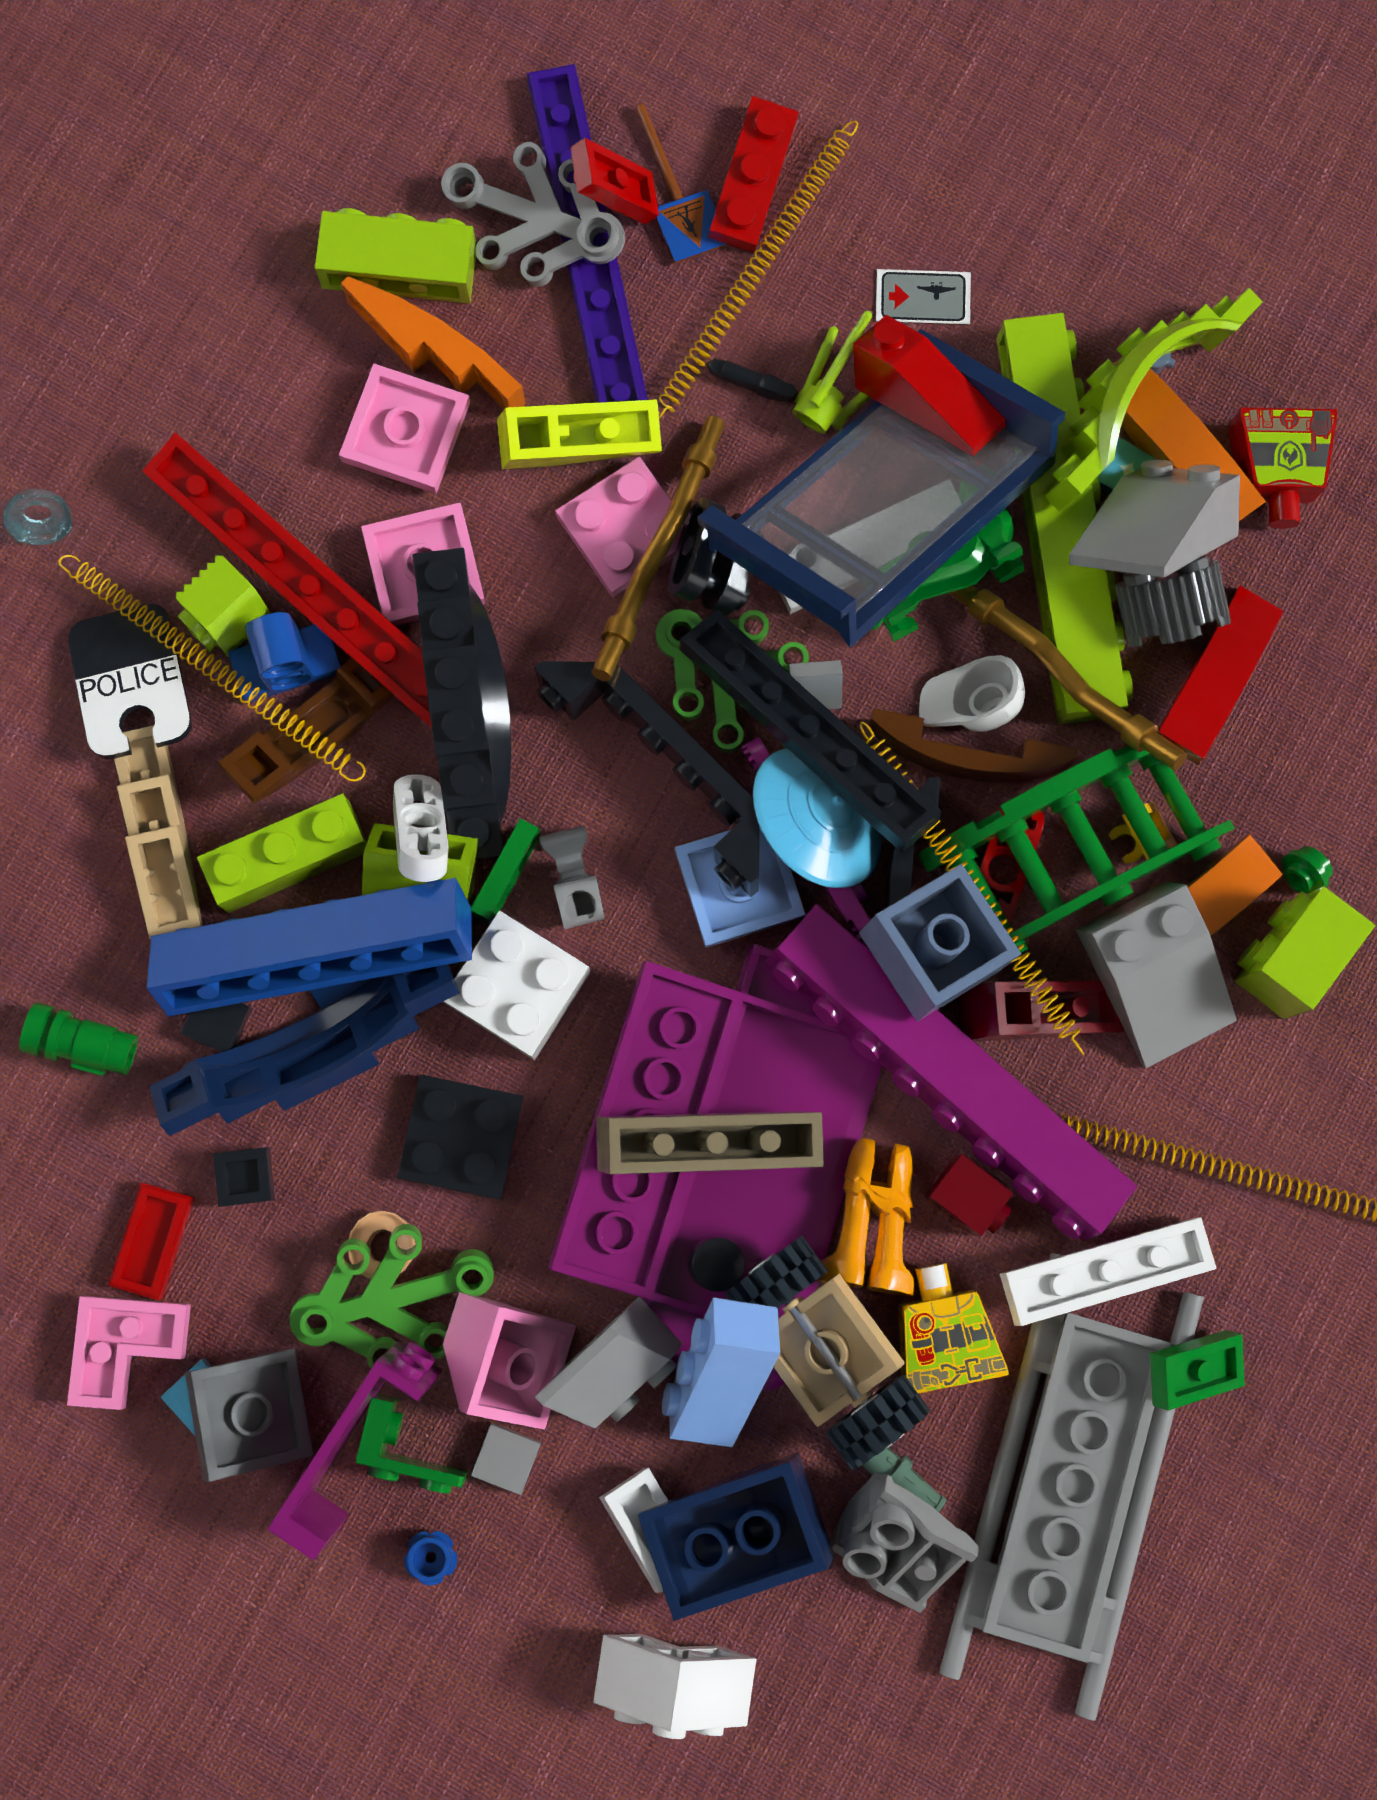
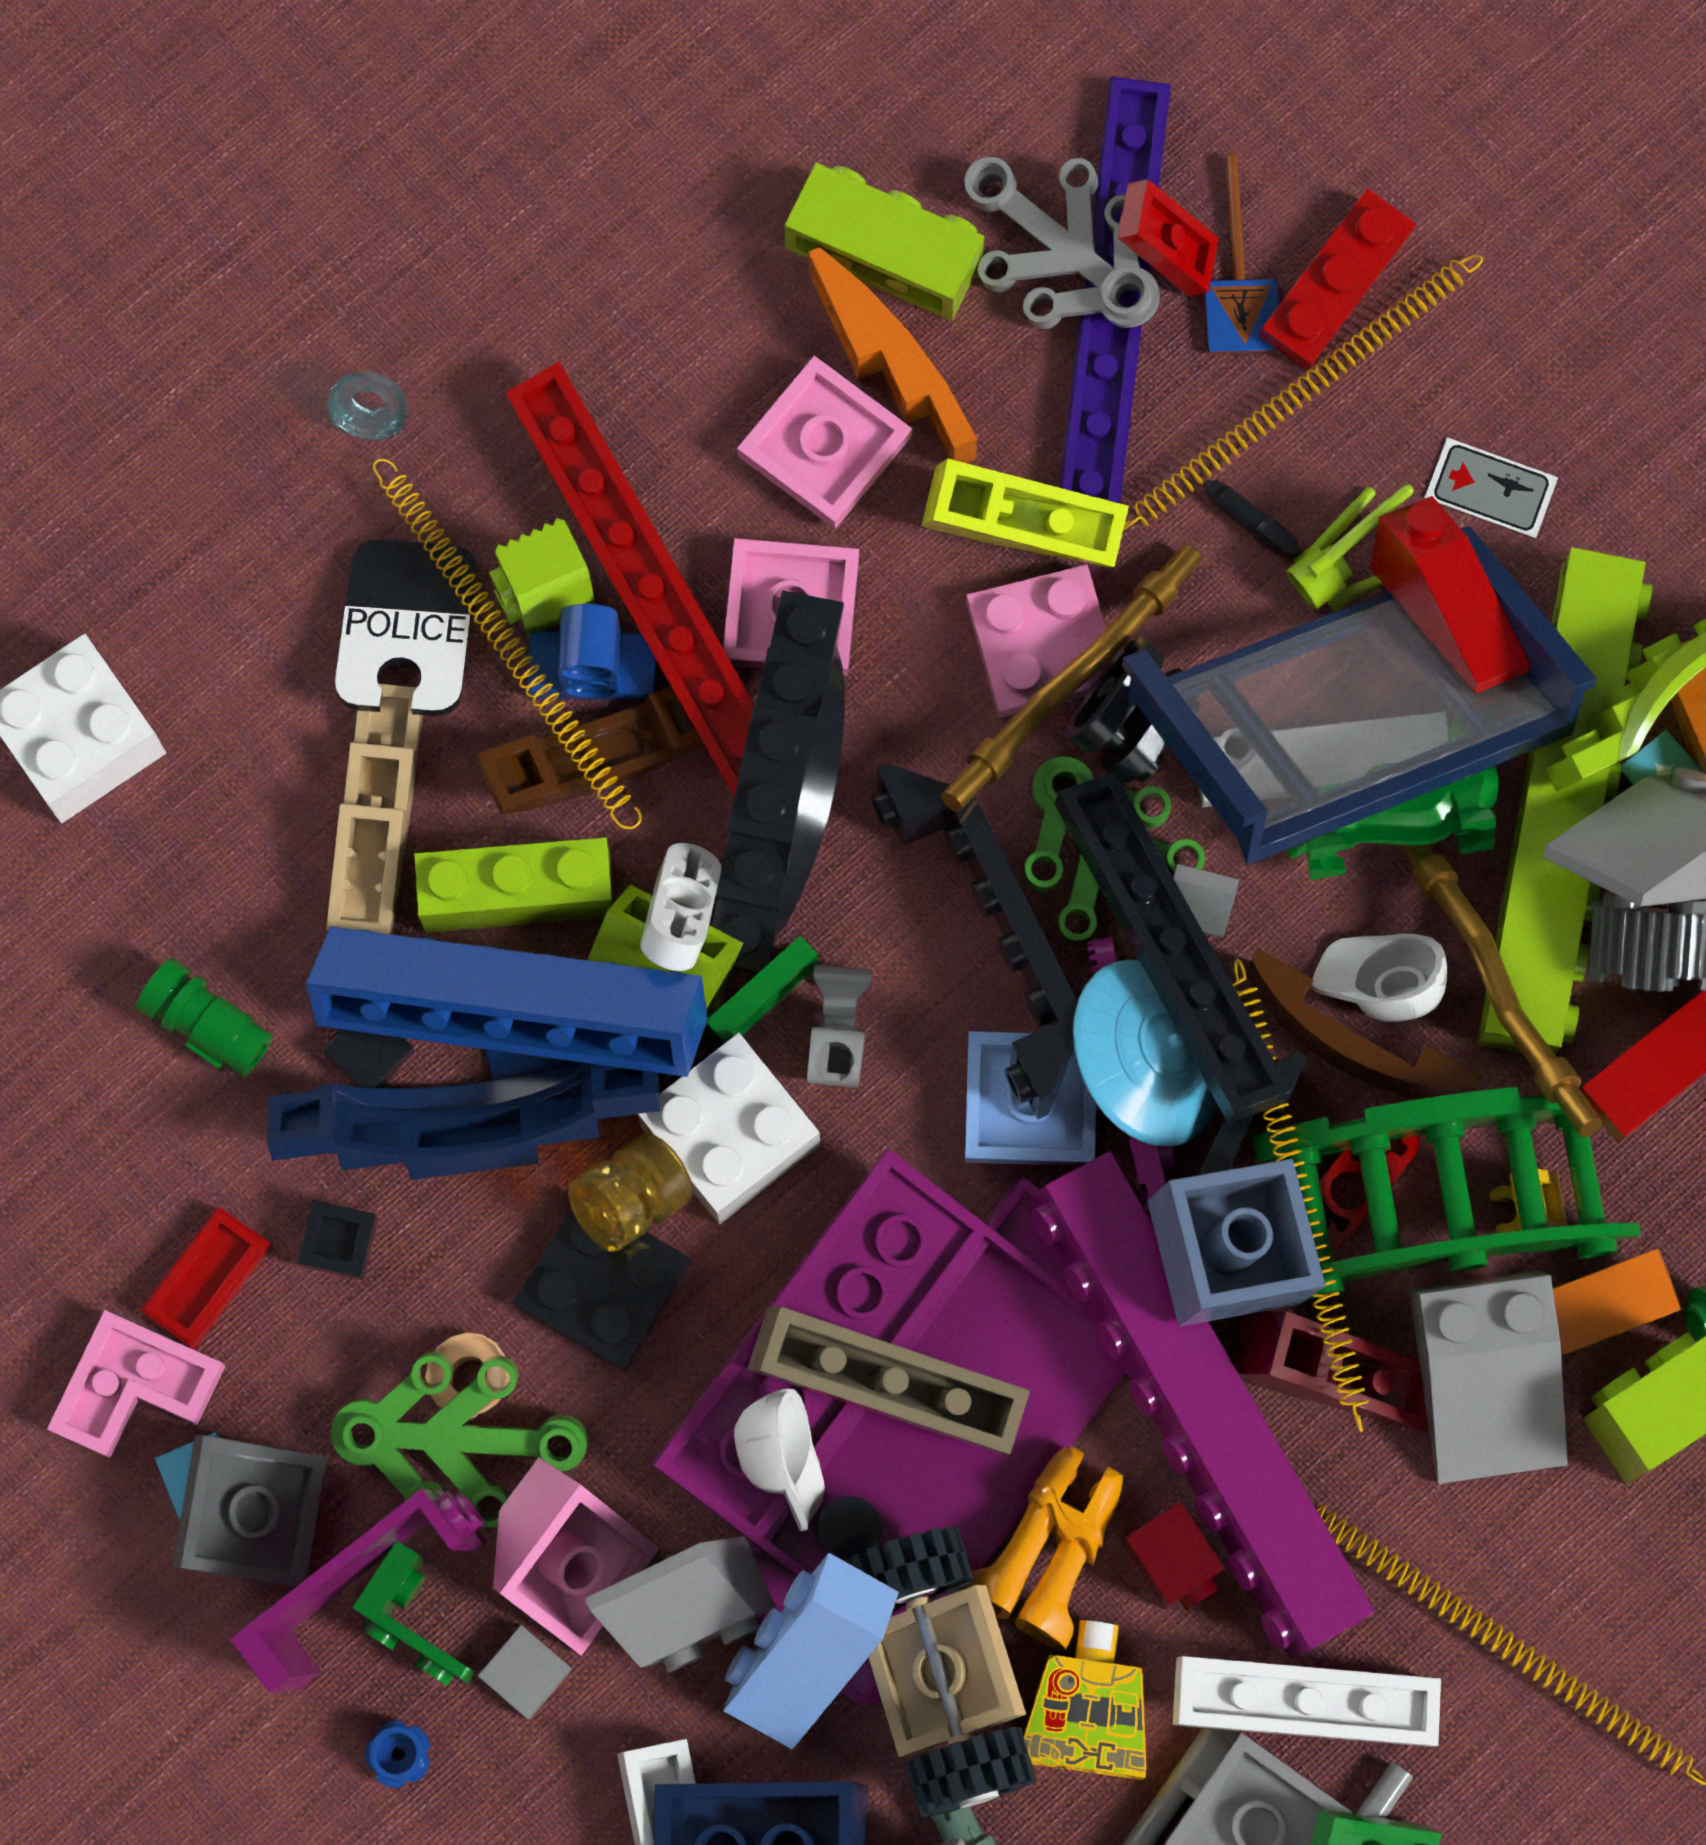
camera: 25 degrees right, 5 degrees down
(457, 1064) = (630, 1192): none -> clear yellow wheel
(645, 1226) = (779, 1452): none -> white cap

